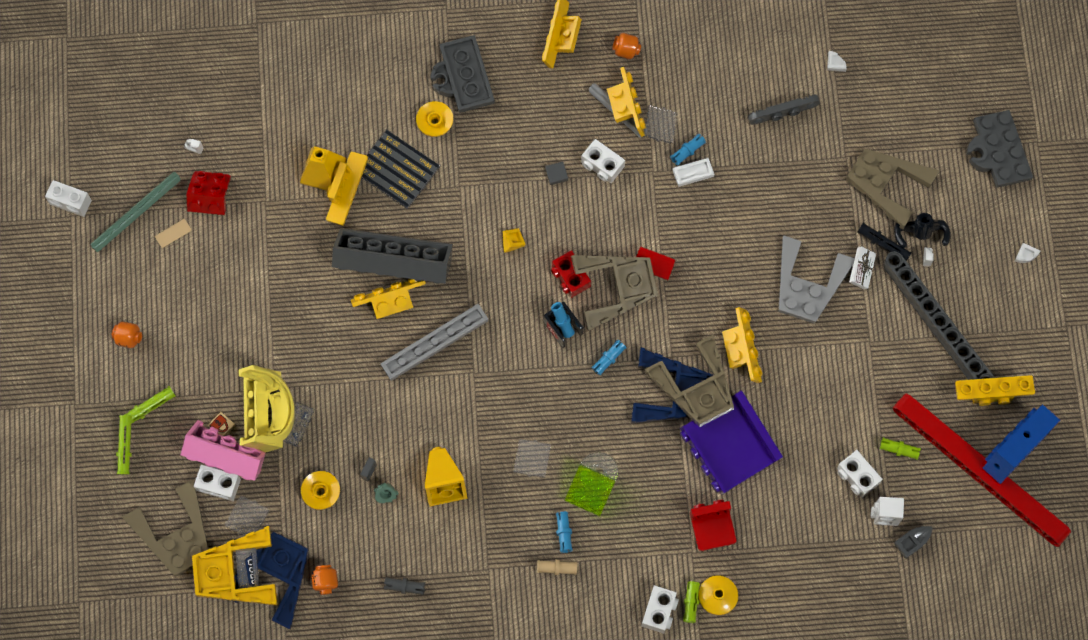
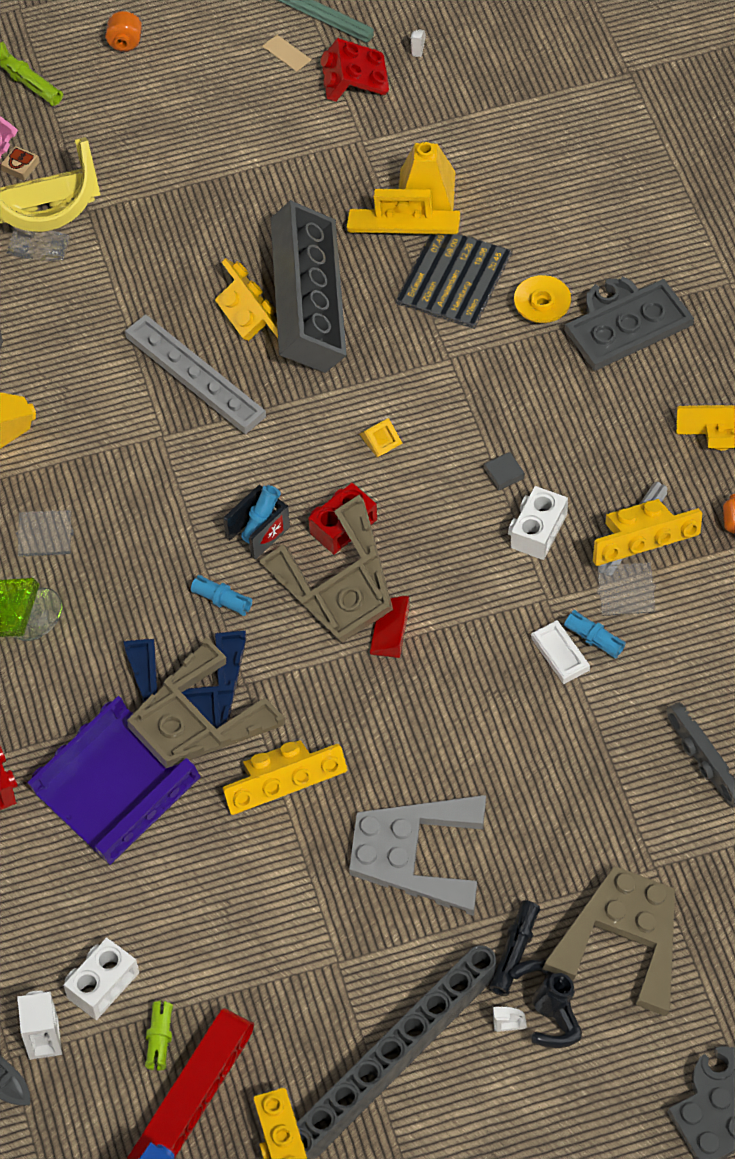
camera: 80 degrees right, 15 degrees down
(862, 268) = (460, 922): white tile -> none

